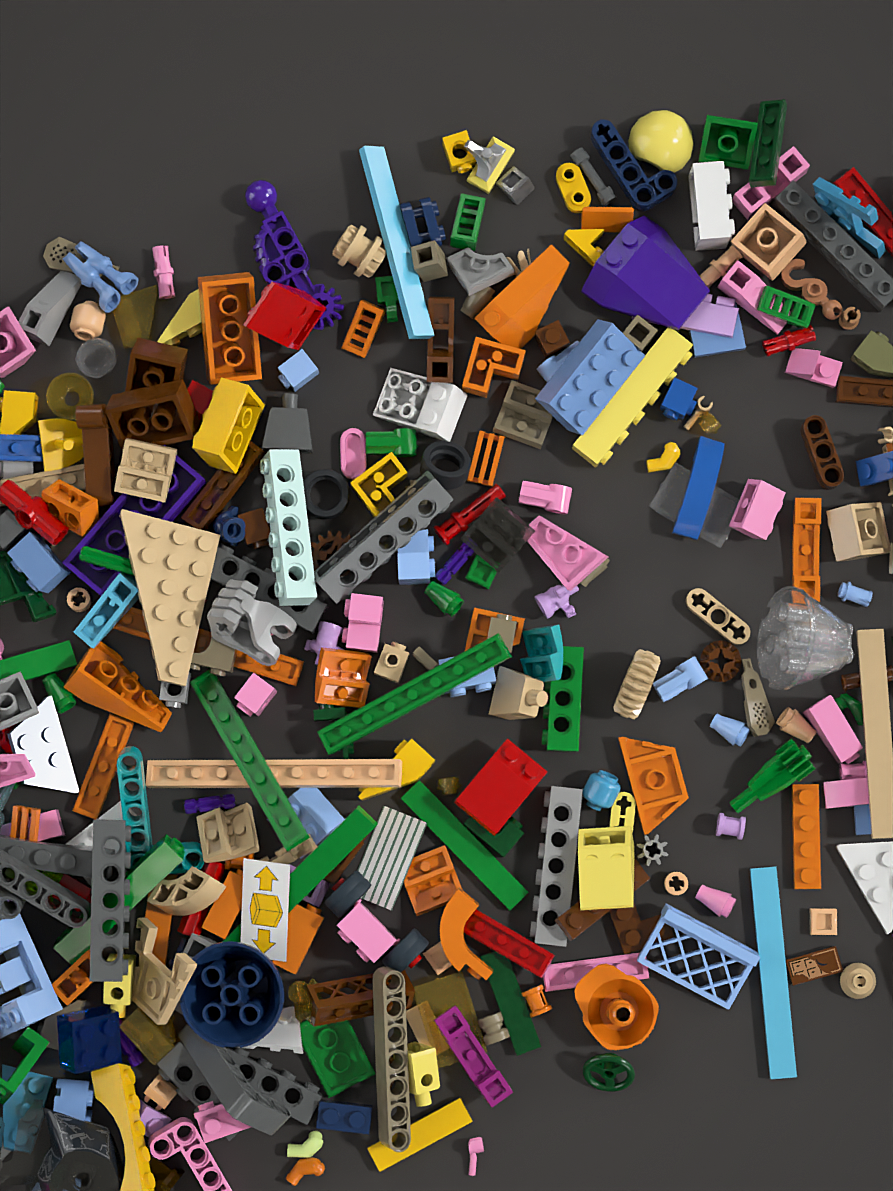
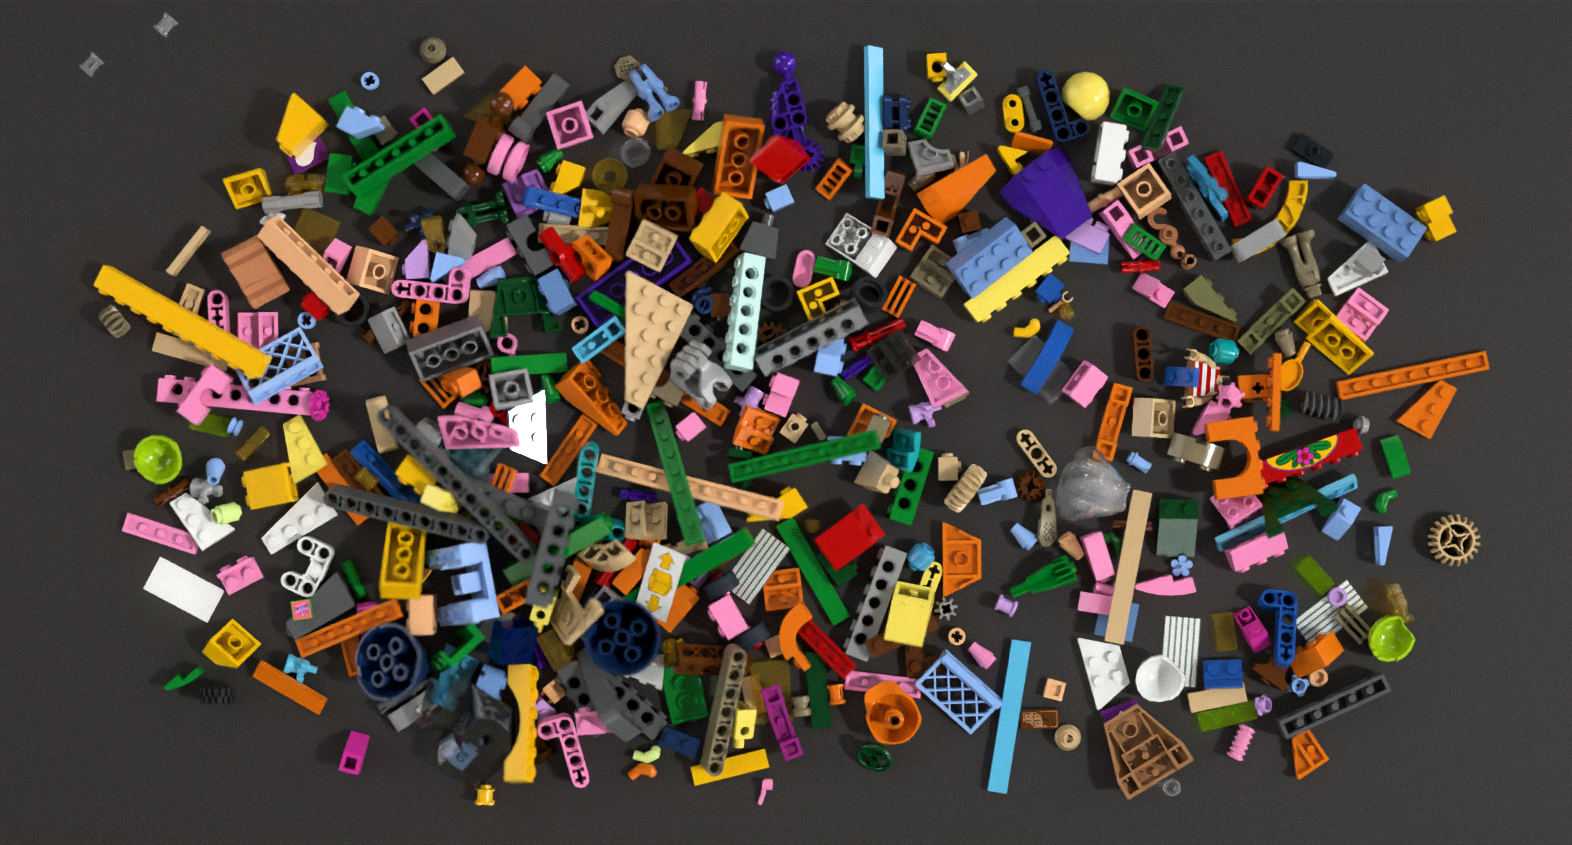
camera: 15 degrees right, 5 degrees up
(607, 663) = (948, 467): none -> tan brick
(806, 836) = (1058, 626): orange plate -> none

